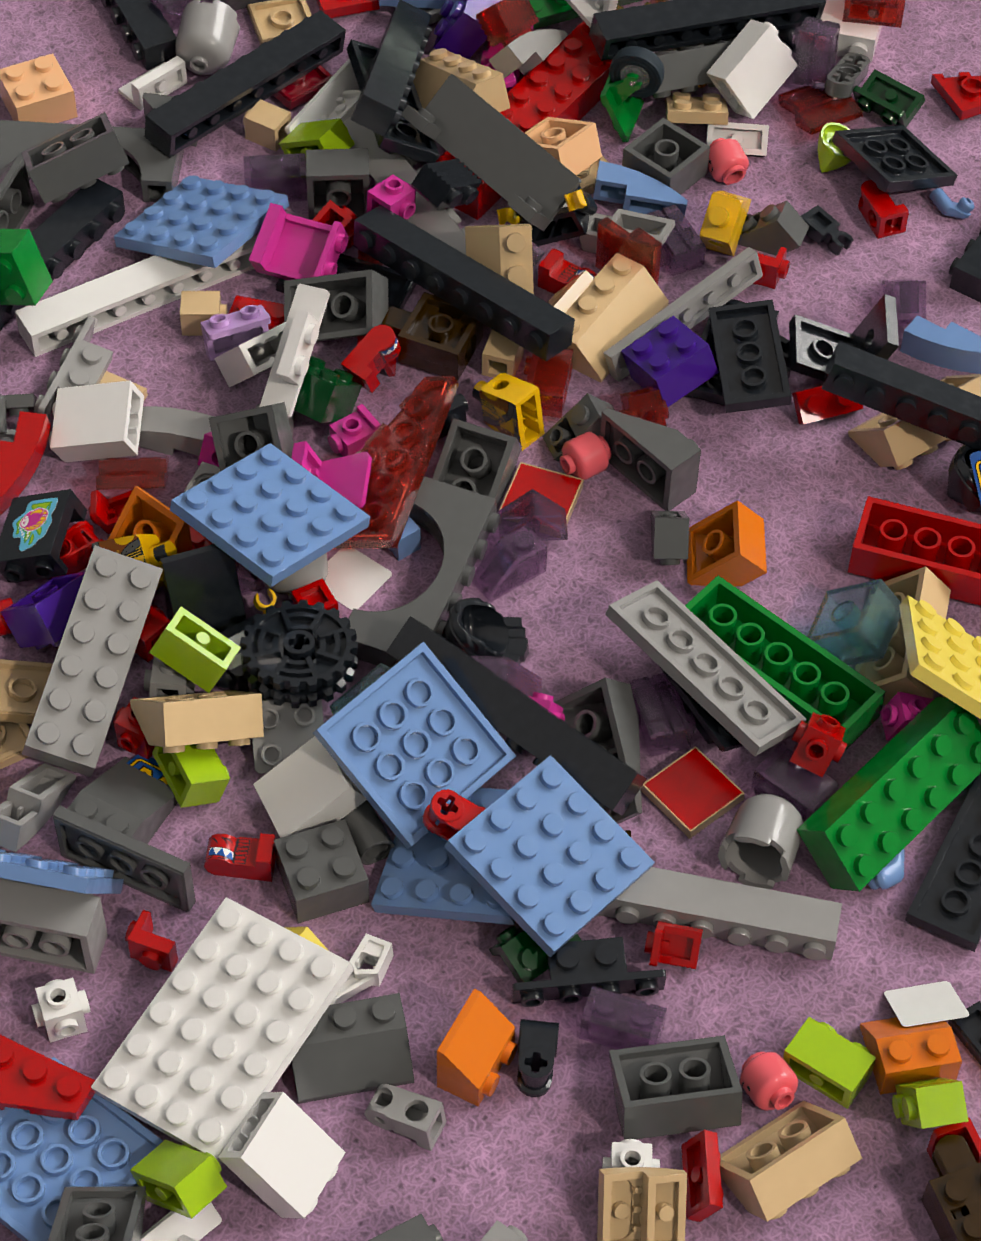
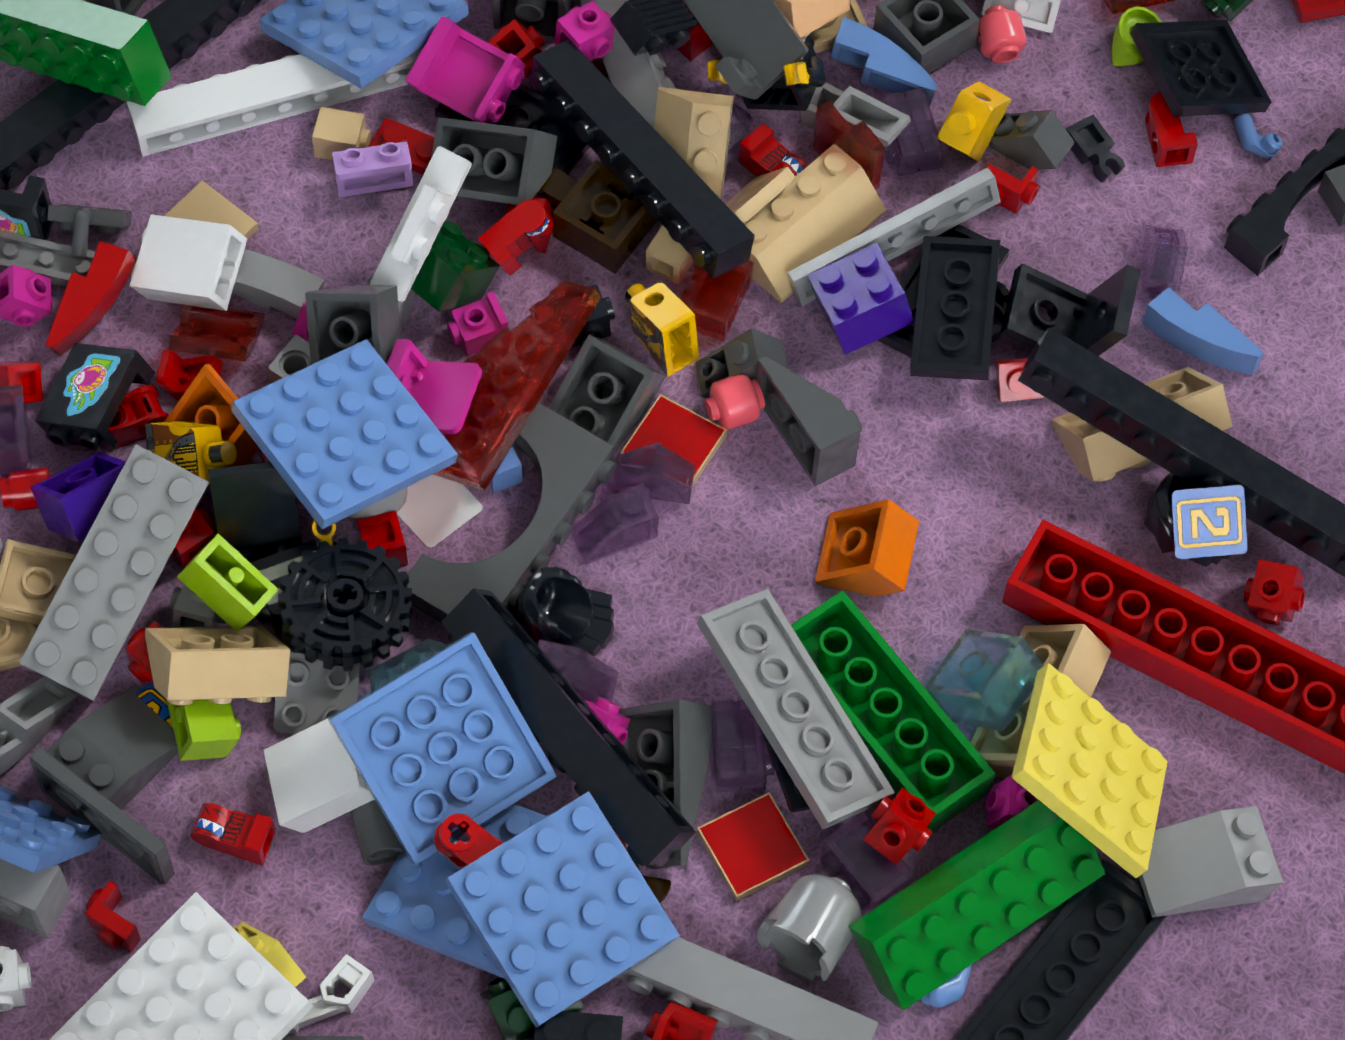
camera: 10 degrees right, 10 degrees up
(79, 366) = (186, 189): light grey bracket -> none
(250, 356) = (380, 208): white brick -> none
(321, 871) = (315, 868): dark grey brick -> none
(645, 404) = (816, 356): clear red brick -> none
(669, 536) = (806, 520): dark grey slope -> none

